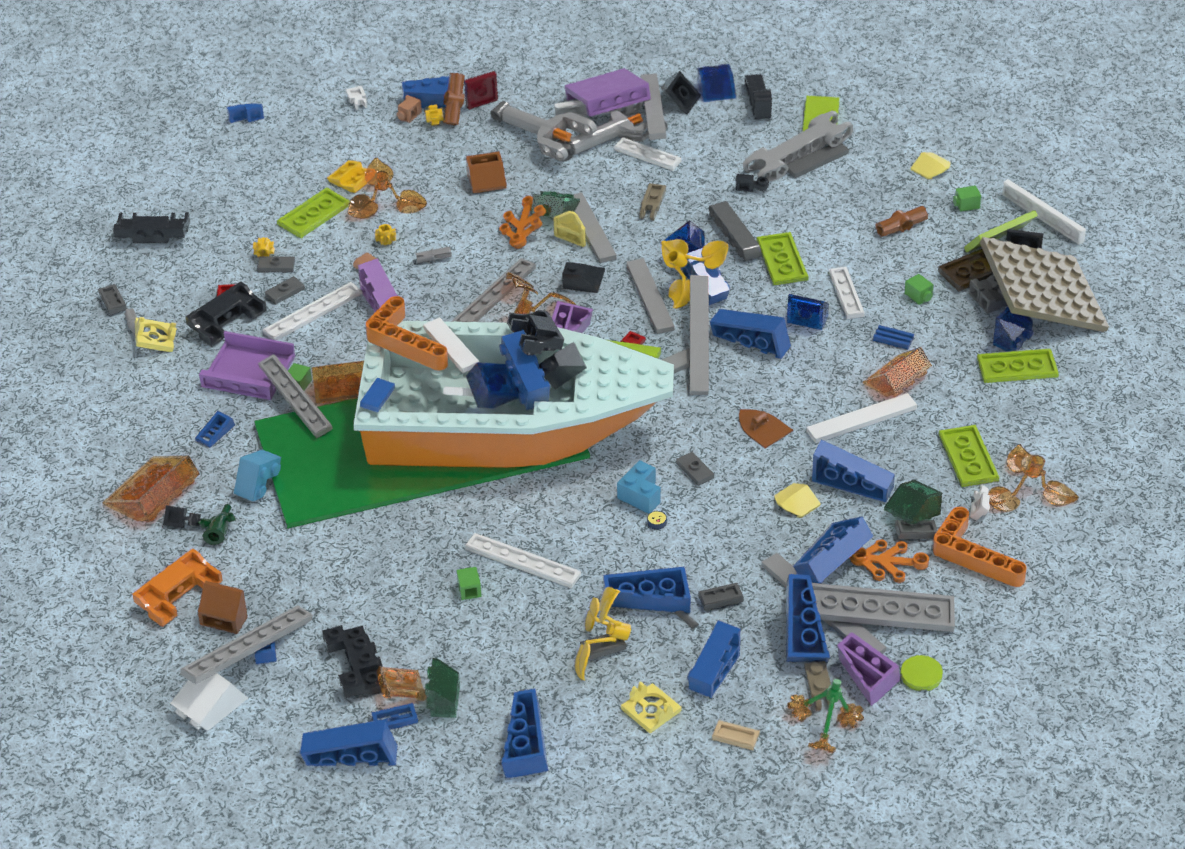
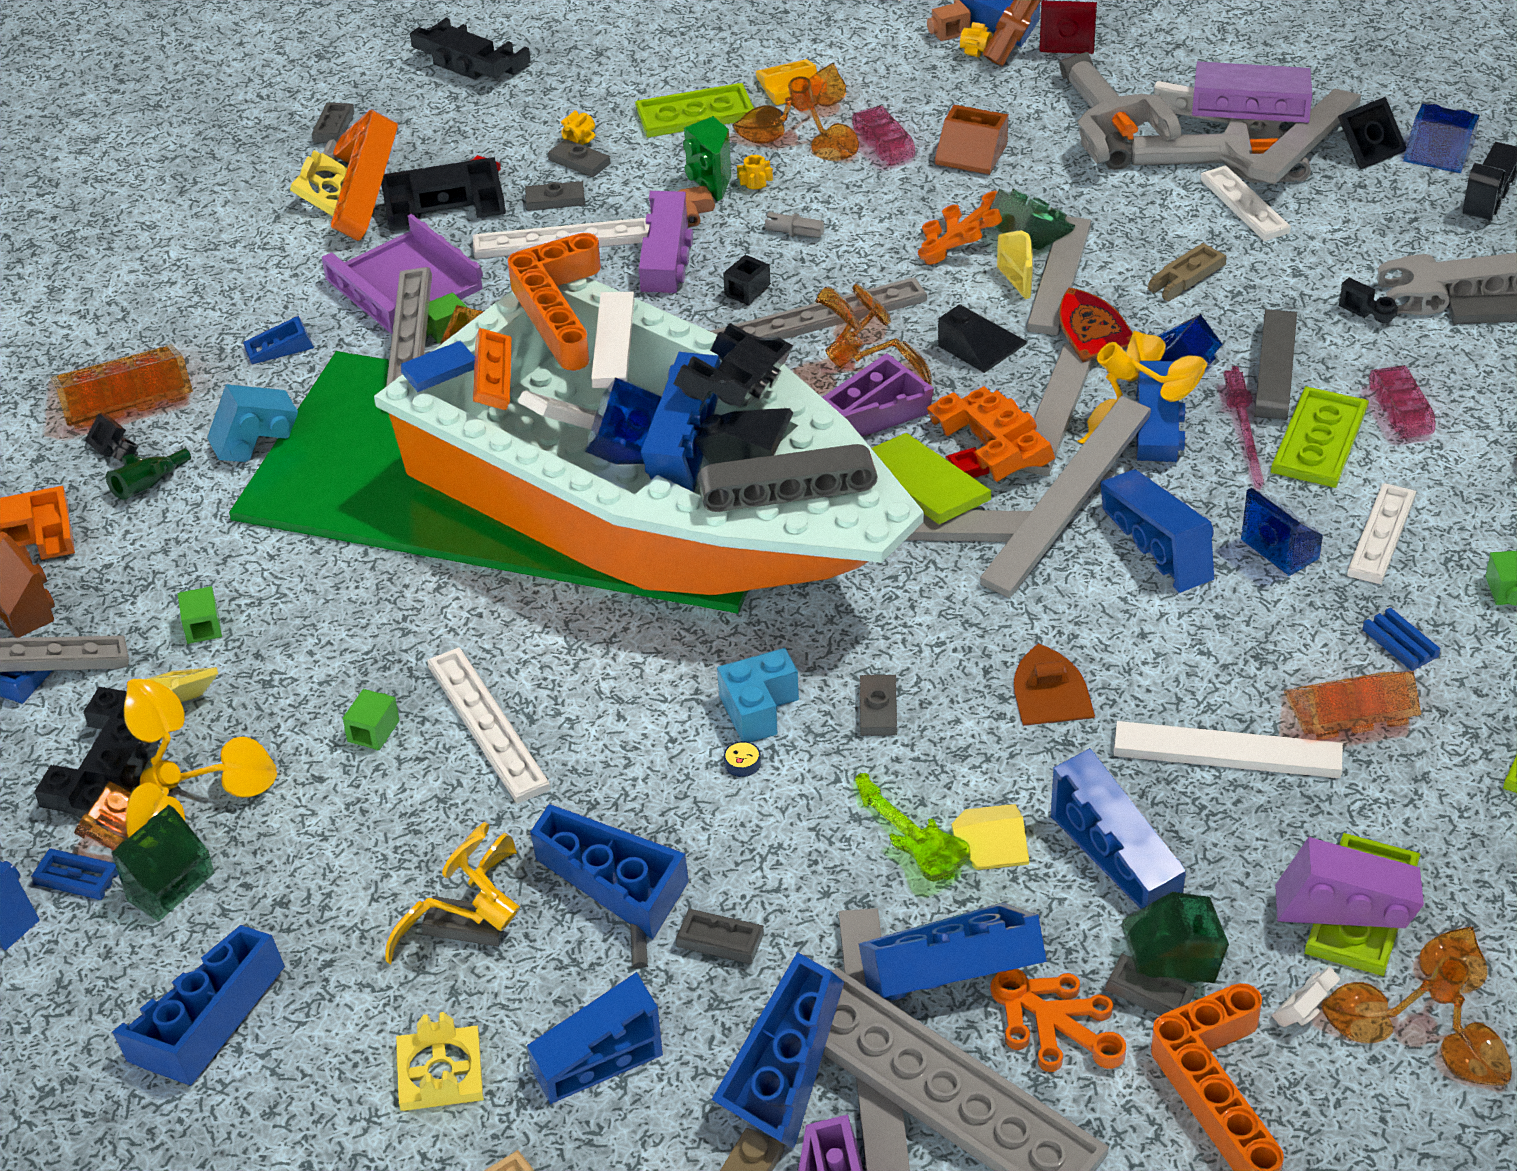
camera: 35 degrees right, 0 degrees up
(169, 298) = (367, 151): none -> orange beam
(329, 577) = (199, 614): none -> bright green brick
(353, 614) = (187, 683): none -> light yellow slope
(358, 234) = (708, 155): none -> green slope
(397, 654) = (150, 715): none -> yellow plant
(407, 384) = (492, 369): none -> orange tile
(434, 187) = (884, 135): none -> clear pink beam
(438, 293) = (746, 279): none -> black brick
(605, 375) = (787, 478): none -> dark grey beam
(634, 246) = (1091, 323): none -> shield
(635, 315) = (1000, 425): none -> orange bracket
(732, 255) = (1241, 398): none -> clear pink piece
(781, 517) = (935, 852): none -> clear neon green piece
(806, 225) = (1403, 401): none -> clear pink beam
(964, 450) = (1347, 888): none -> medium lavender wedge

